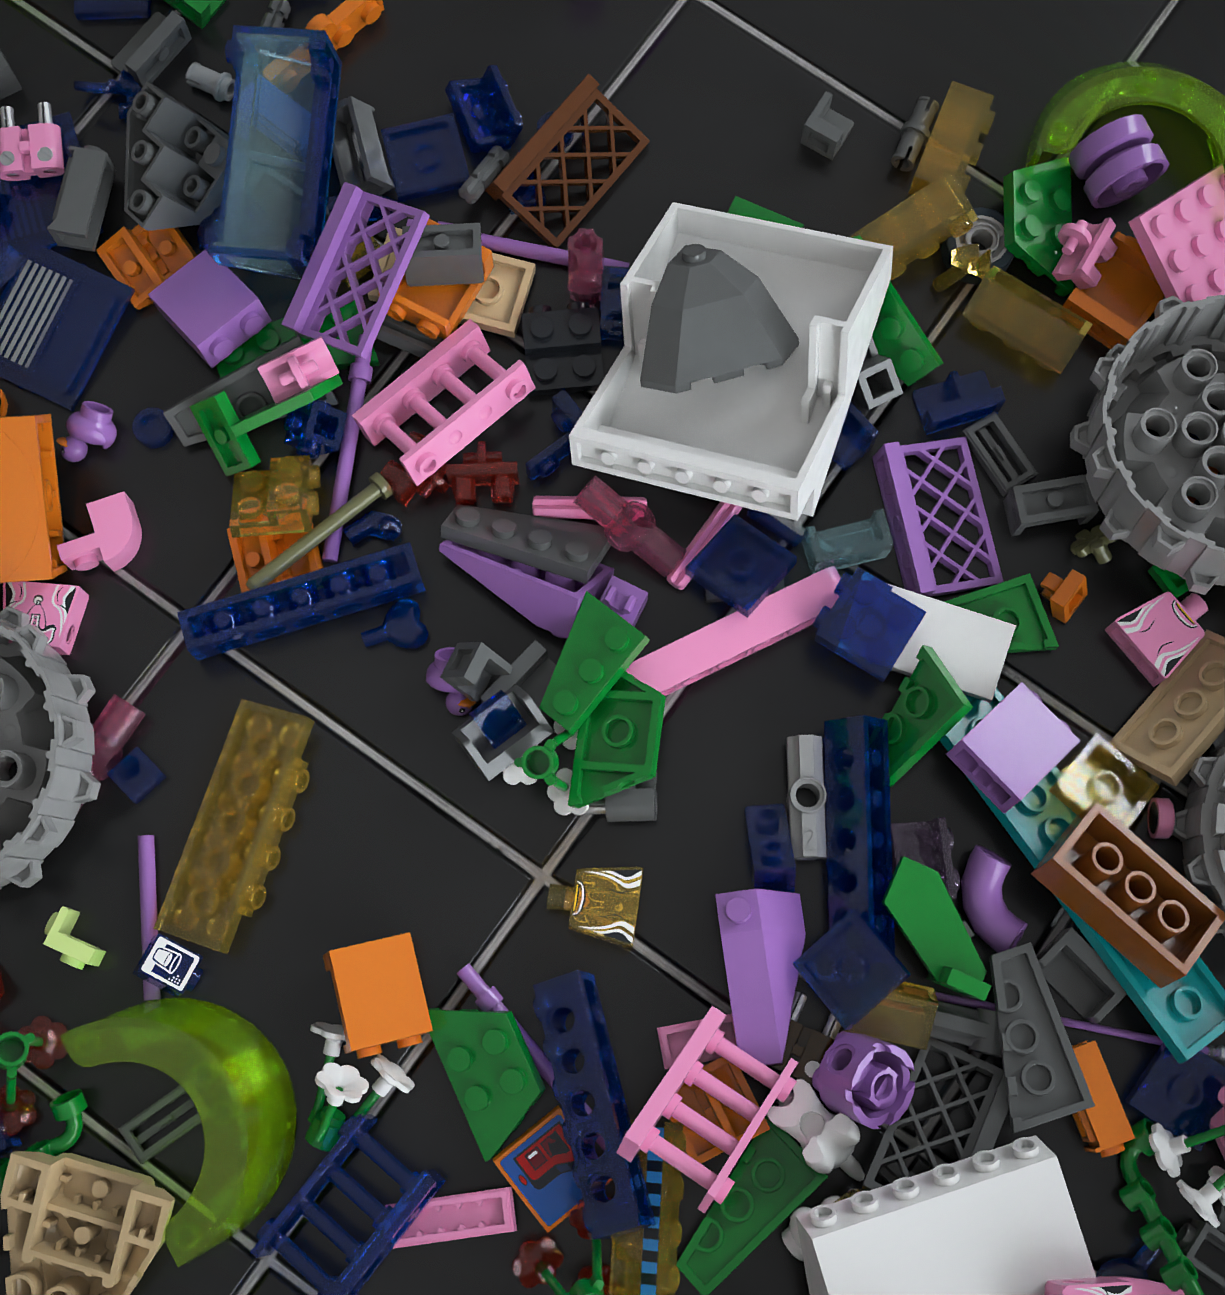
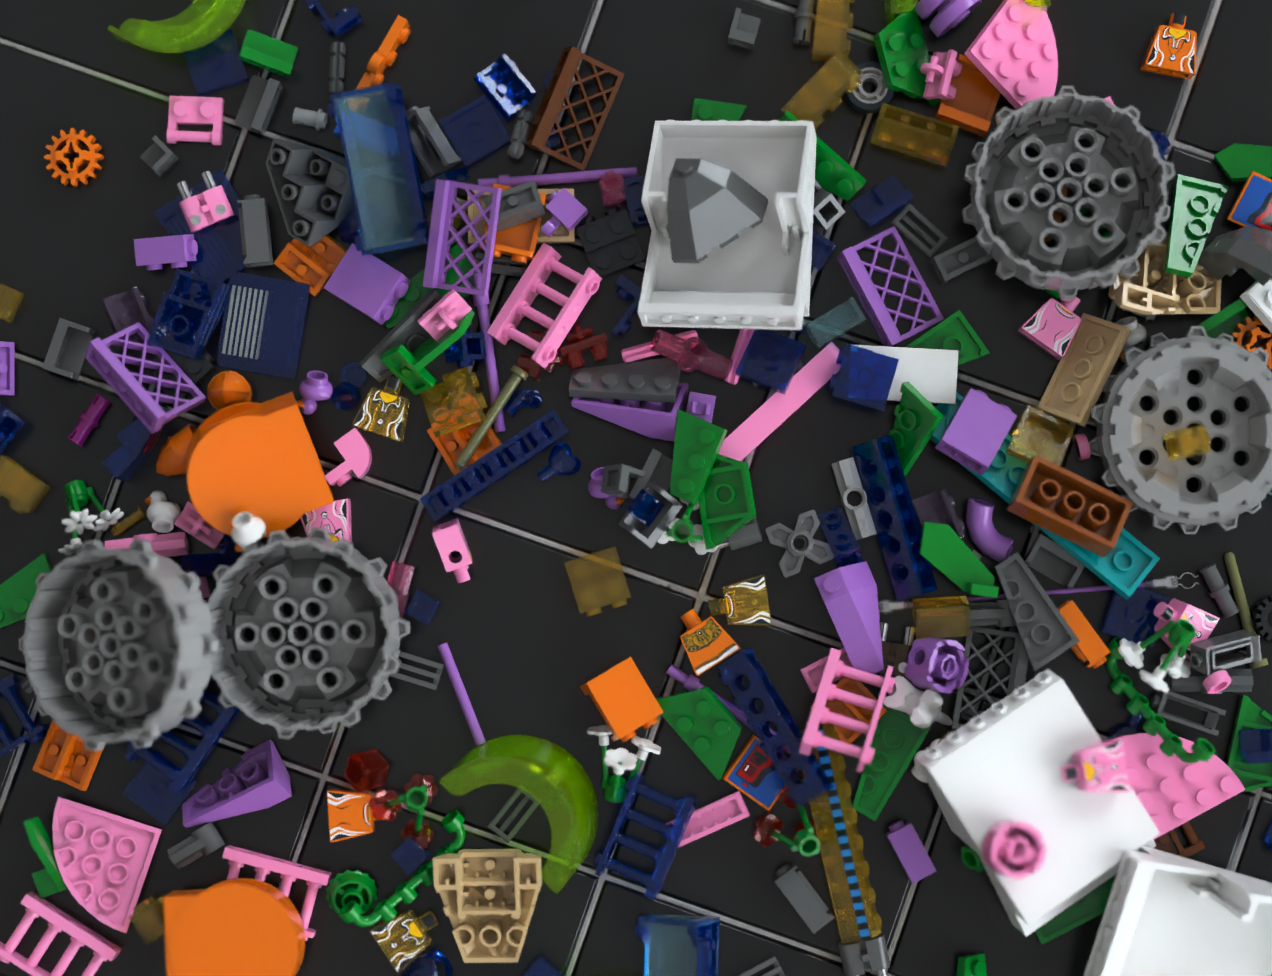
camera: 15 degrees left, 10 degrees up
(62, 35) = (195, 111): none -> bright pink plate
(73, 950) = (423, 728): yellowish green bracket -> none
(122, 881) = (436, 676): none -> dark grey tile
(124, 86) = (245, 144): clear blue piece -> none
(130, 450) = (345, 396): none -> clear blue tile
(169, 966) = (486, 720): clear blue brick -> none
(175, 485) = (384, 411): none -> clear yellow torso
(199, 684) = (450, 538): none -> bright pink torso
(238, 827) = (500, 621): clear yellow plate -> none
(399, 811) = (598, 581): none -> clear yellow plate
(511, 284) = (564, 211): none -> medium lavender brick
(528, 944) = (705, 642): none -> torso
(689, 825) = (813, 549): none -> flat silver plant
(851, 969) = (910, 601): clear blue tile -> none
(964, 262) = (862, 108): clear yellow bar -> none
(1064, 594) = (986, 317): orange tile -> none
(1092, 542) = (991, 279): olive plant -> none

